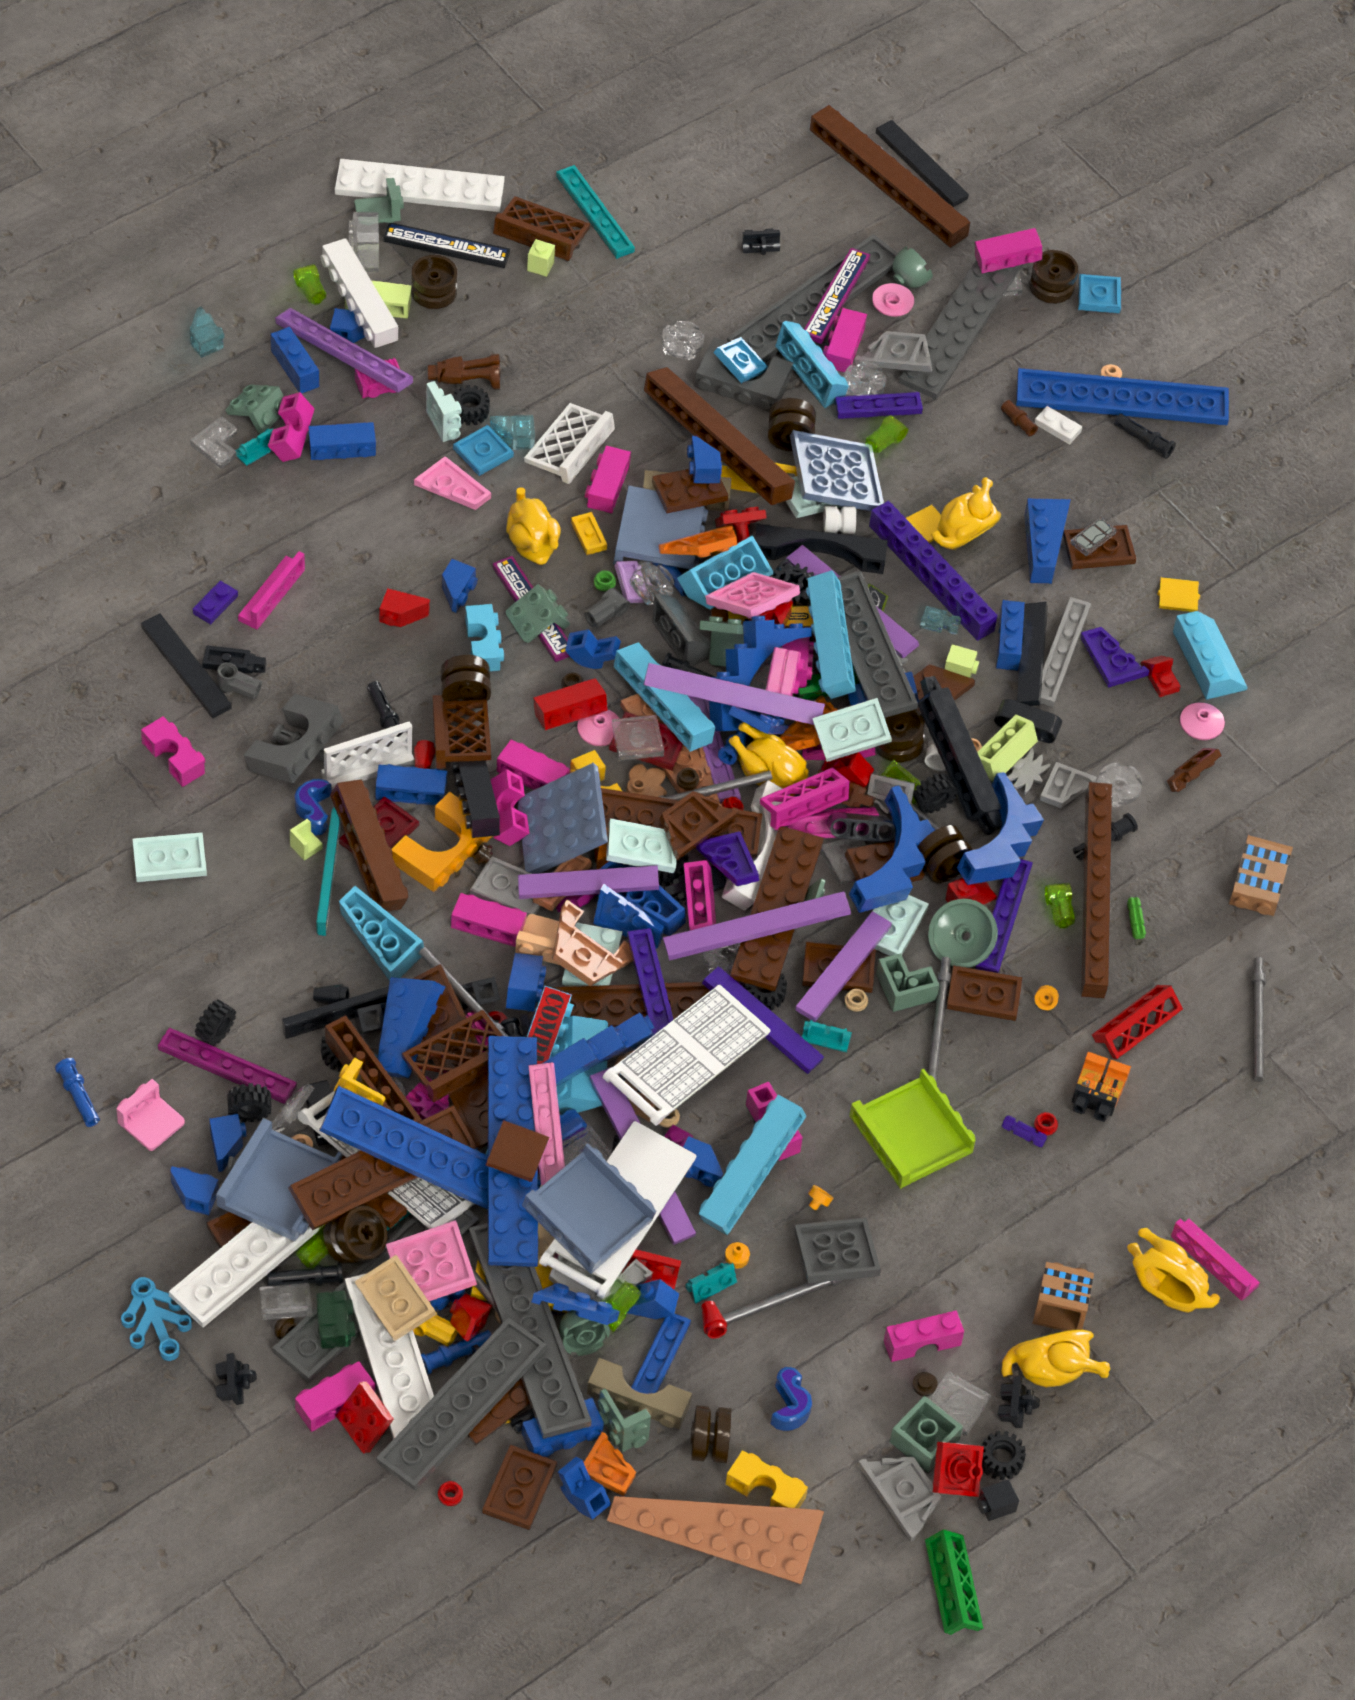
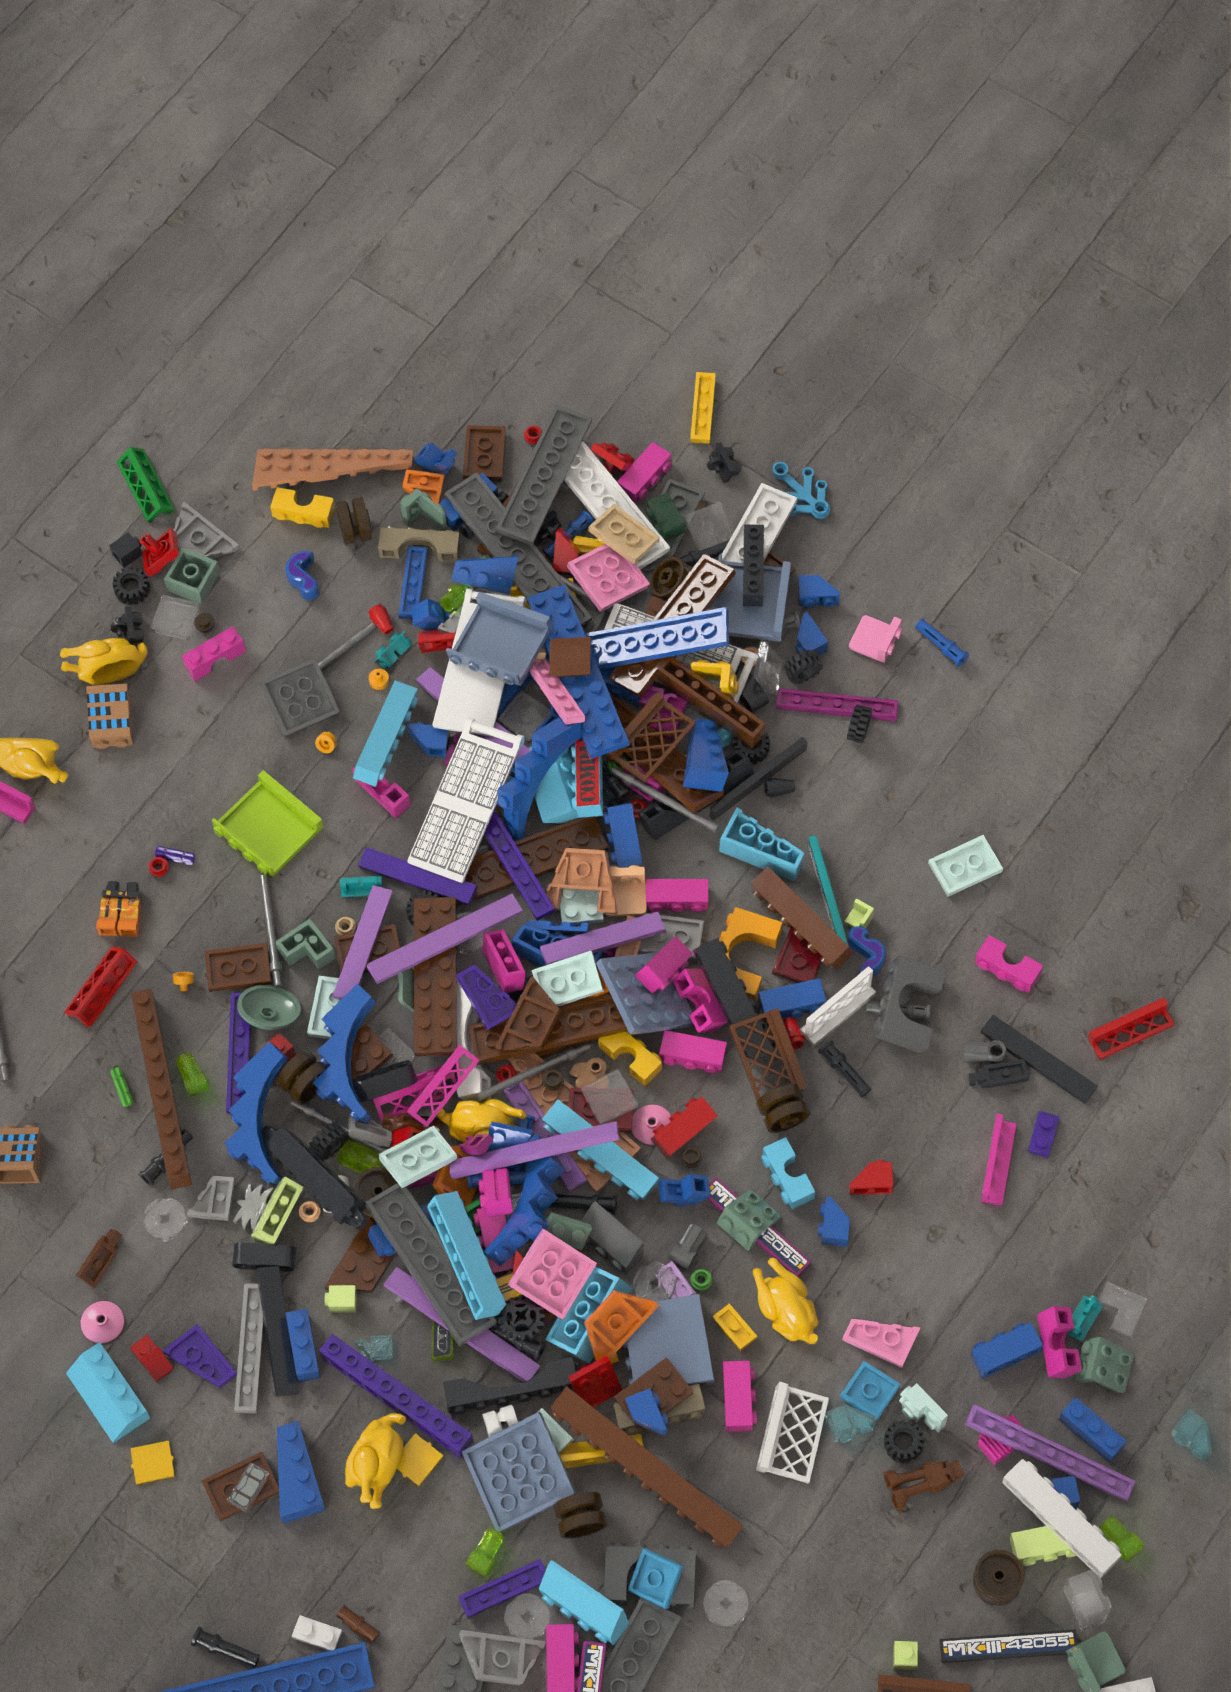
camera: 170 degrees right, 10 degrees up
(80, 663) = (1128, 1021): none -> red fence
(228, 1459) = (702, 407): none -> yellow plate
(261, 1204) = (753, 565): none -> black brick
(534, 836) = (664, 965): none -> dark pink brick
(788, 722) = (476, 1145): none -> magenta plate

